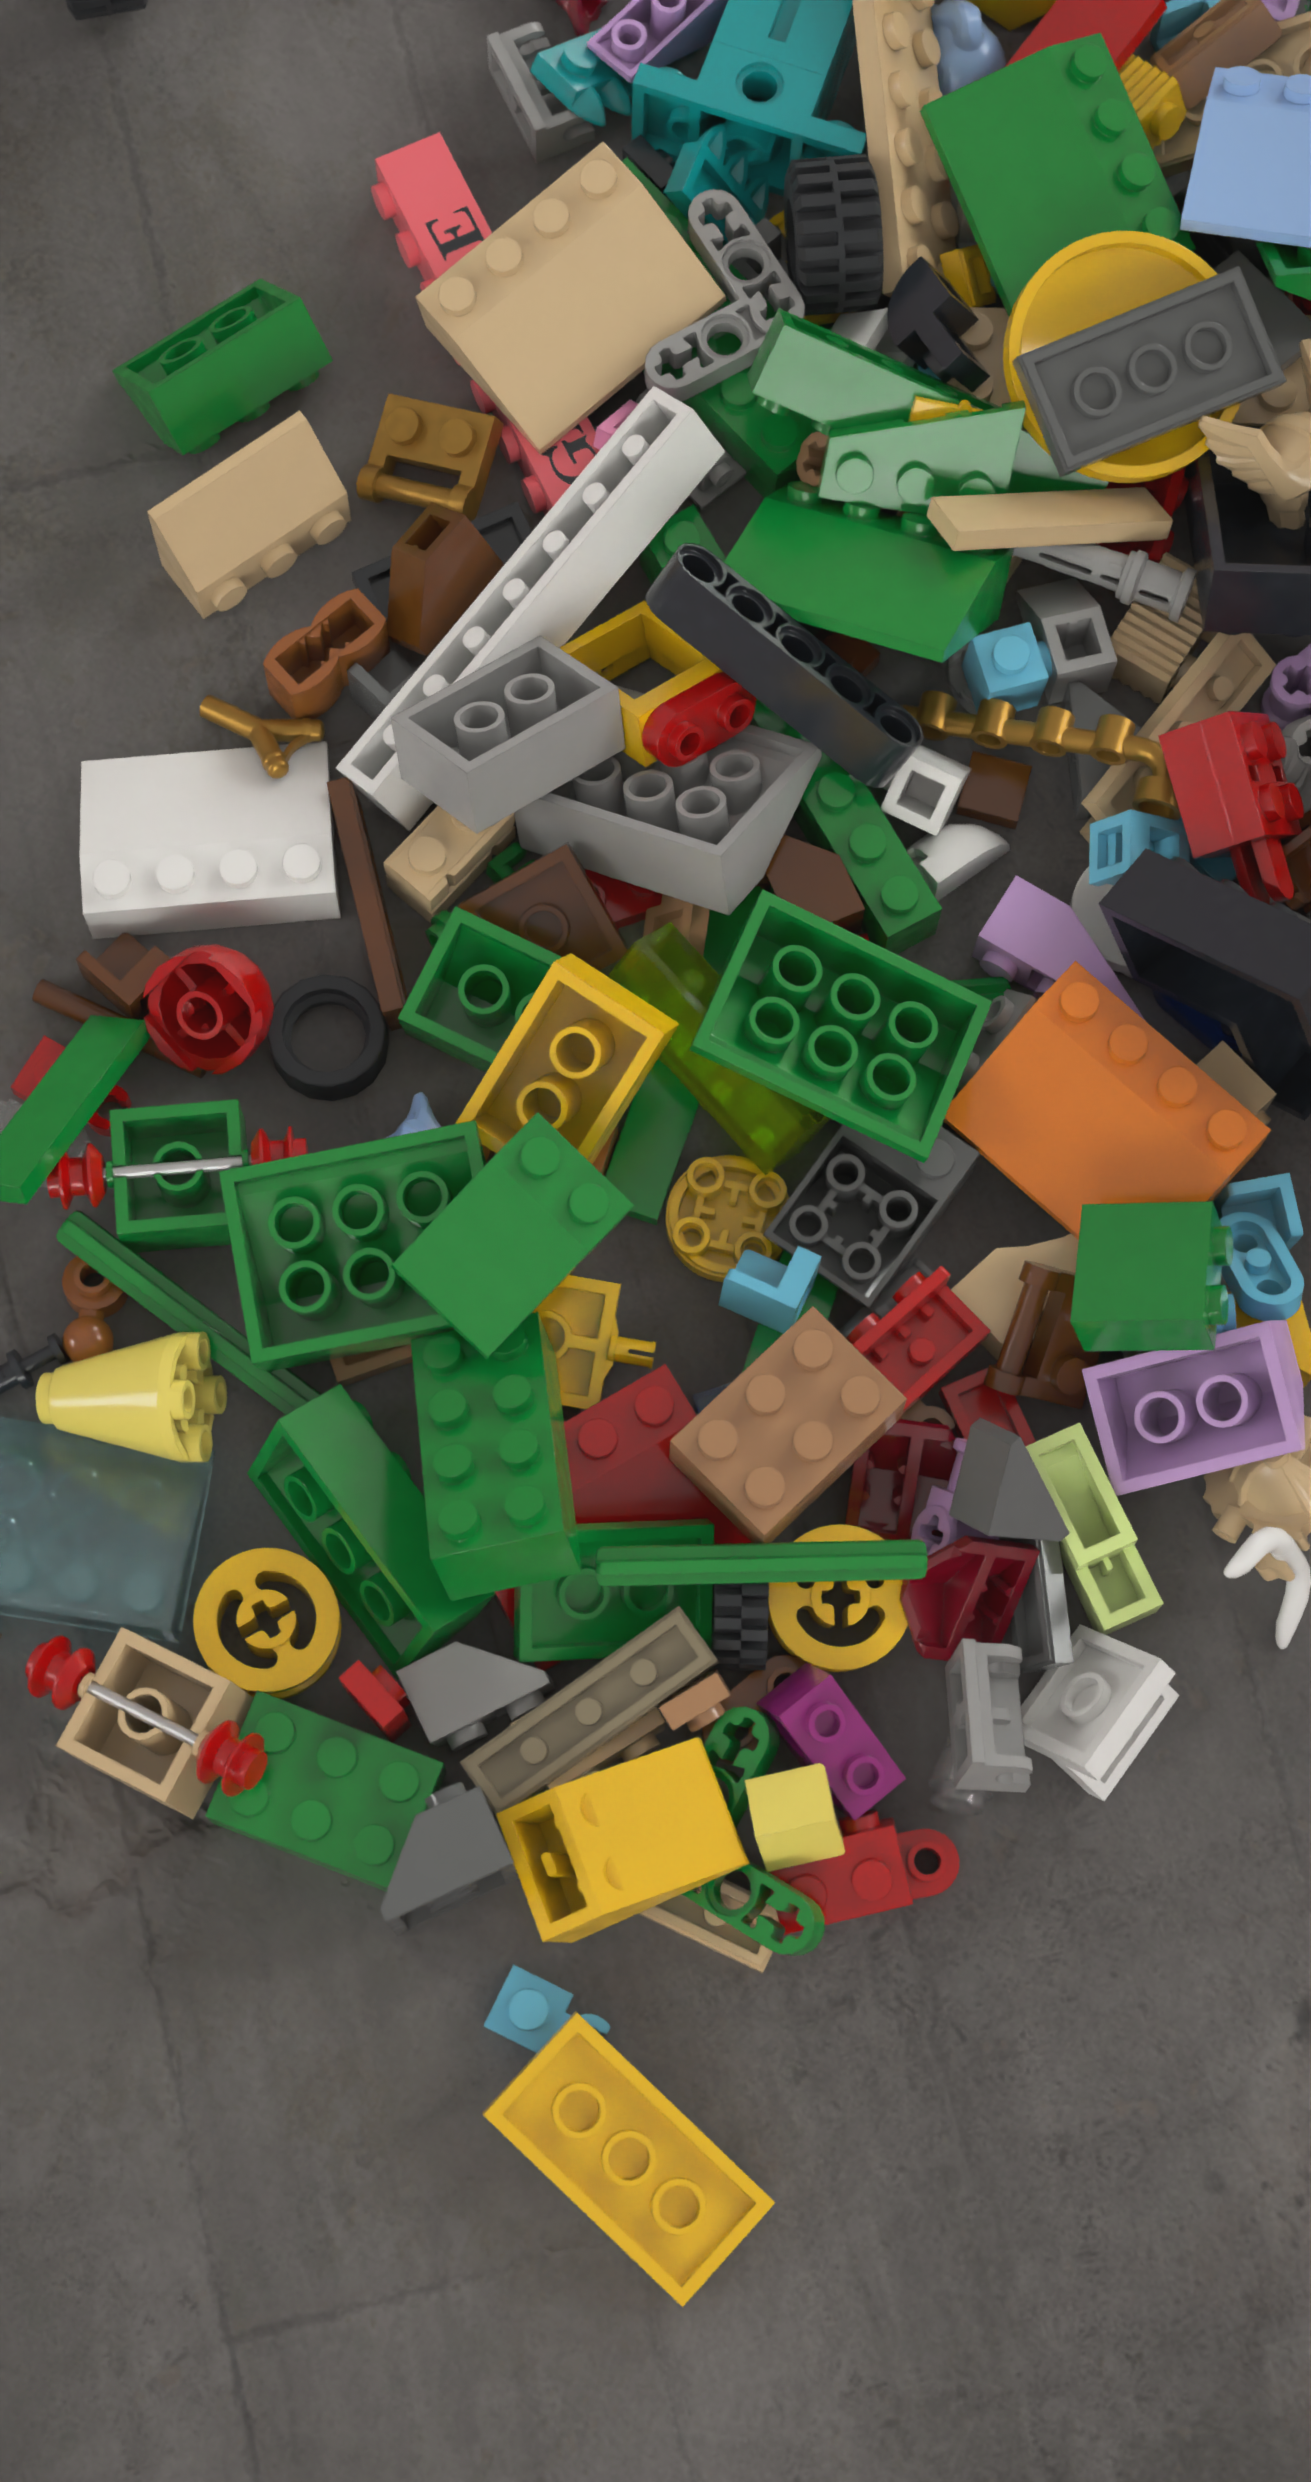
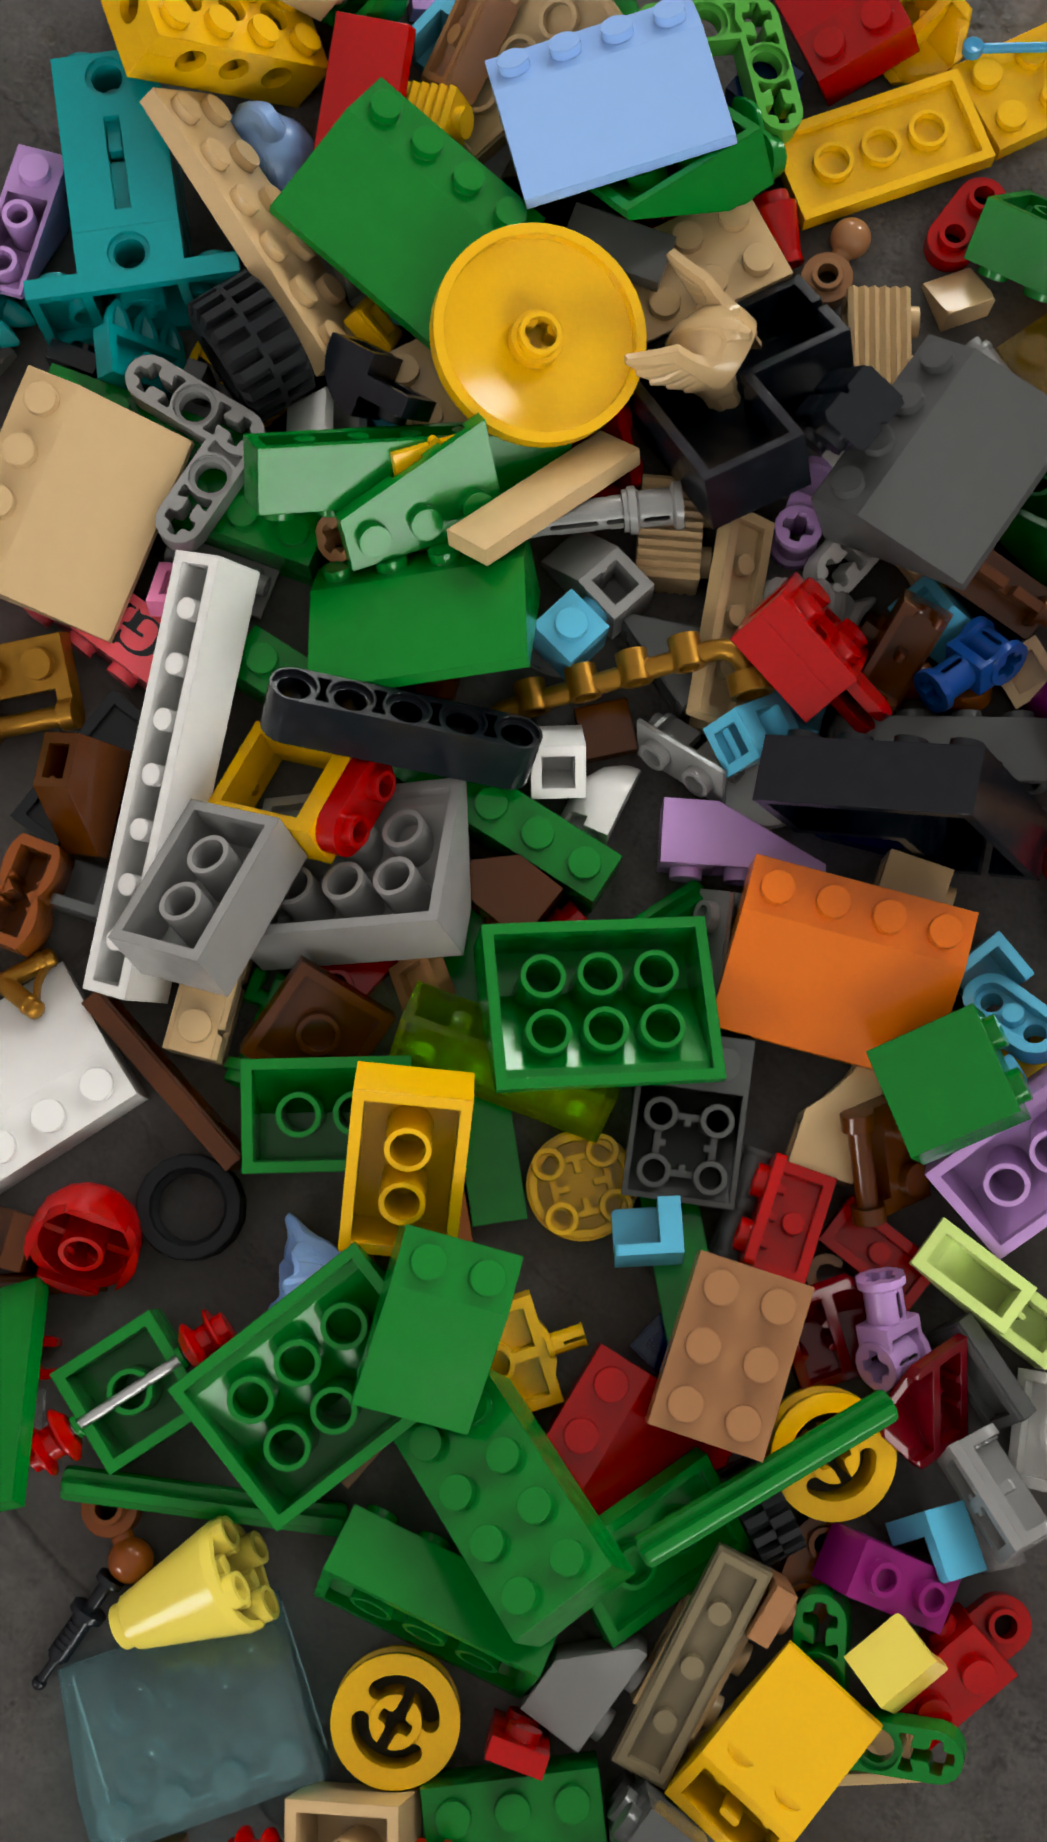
camera: 25 degrees left, 5 degrees up
(913, 1734) = (947, 1537): none -> medium azure panel
(1002, 1488) = (920, 1315): dark grey slope -> none
(1049, 834) = (668, 746): none -> light grey hinge
(1149, 371) = (564, 339): dark grey tile -> none

